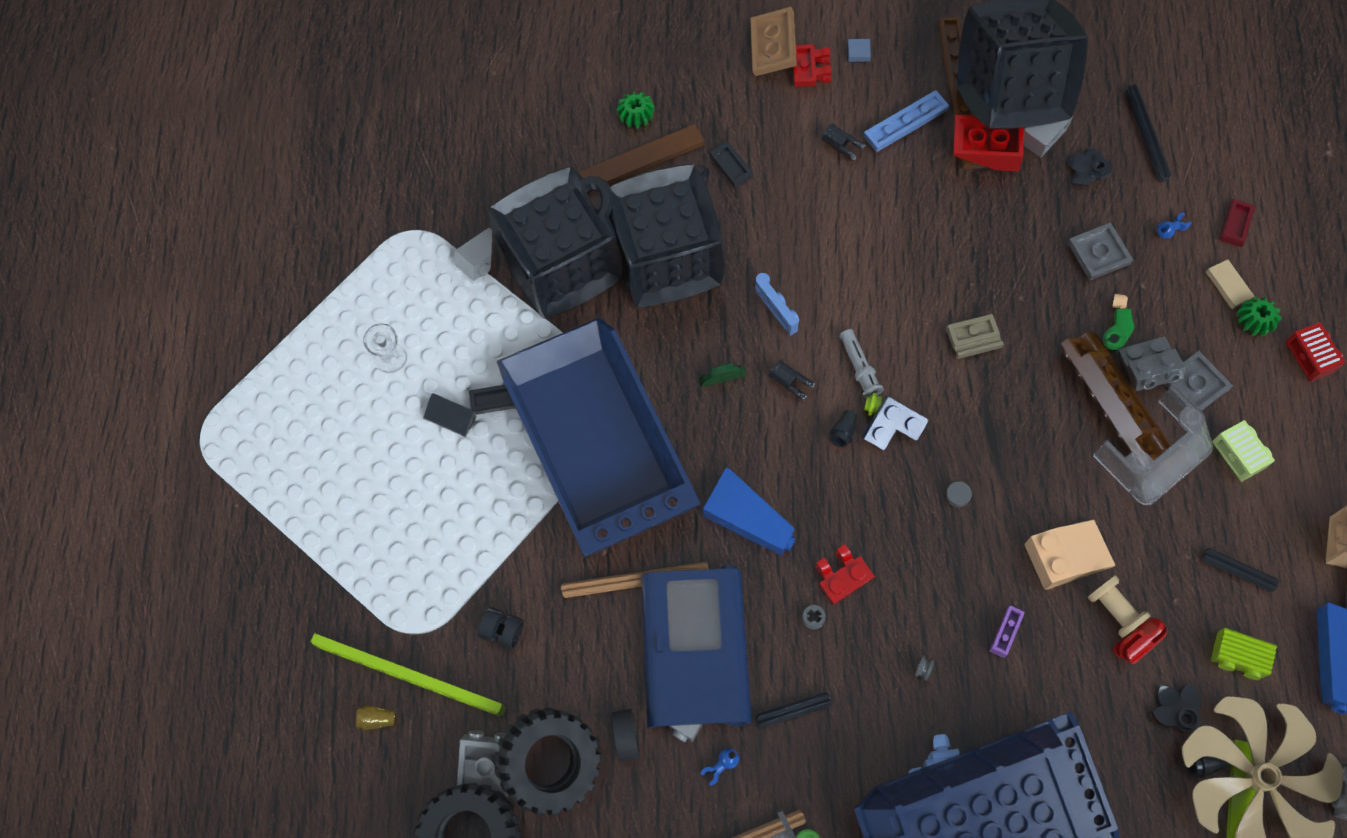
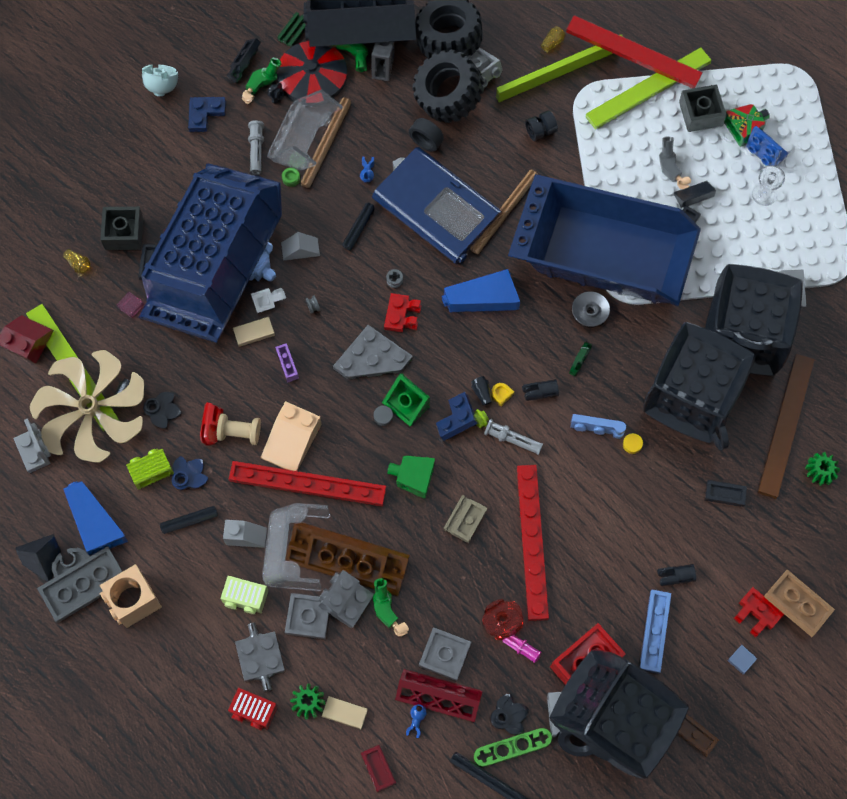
camera: 130 degrees right, 0 degrees up
(322, 430) = (742, 121): none -> torso
(326, 610) = (634, 52): none -> red tile
(336, 389) = (765, 148): none -> blue bracket
(341, 480) = (702, 108): none -> pearl dark grey brick
(357, 561) = (641, 92): none -> lime tile
(441, 460) = (668, 166): none -> dark grey arm
(670, 395) = (594, 302): none -> flat silver dish
(761, 264) = (632, 443): none -> yellow tile
(827, 412) = (501, 393): none -> yellow tile
(877, 746) = (300, 246): none -> light grey slope
(913, 561) = (372, 356): none -> flat silver plate
(924, 483) = (406, 400): none -> green slope
(932, 272) = (532, 543): none -> red plate
(967, 719) = (265, 299): none -> white plate
(984, 412) = (413, 474): none -> green torso
(1009, 700) = (253, 331): none -> tan tile
(1028, 201) = (523, 648): none -> dark pink axle
(1036, 223) = (504, 629): none -> clear red plate
(1094, 498) = (307, 483): none -> red plate
(1110, 141) = (511, 743): none -> bright green beam
(1133, 228) = (456, 693): none -> dark red fence
(1197, 504) = (244, 534): none -> light grey slope
(1200, 615) = (190, 471): none -> dark blue plate
(1271, 390) = (259, 657): none -> flat silver plate

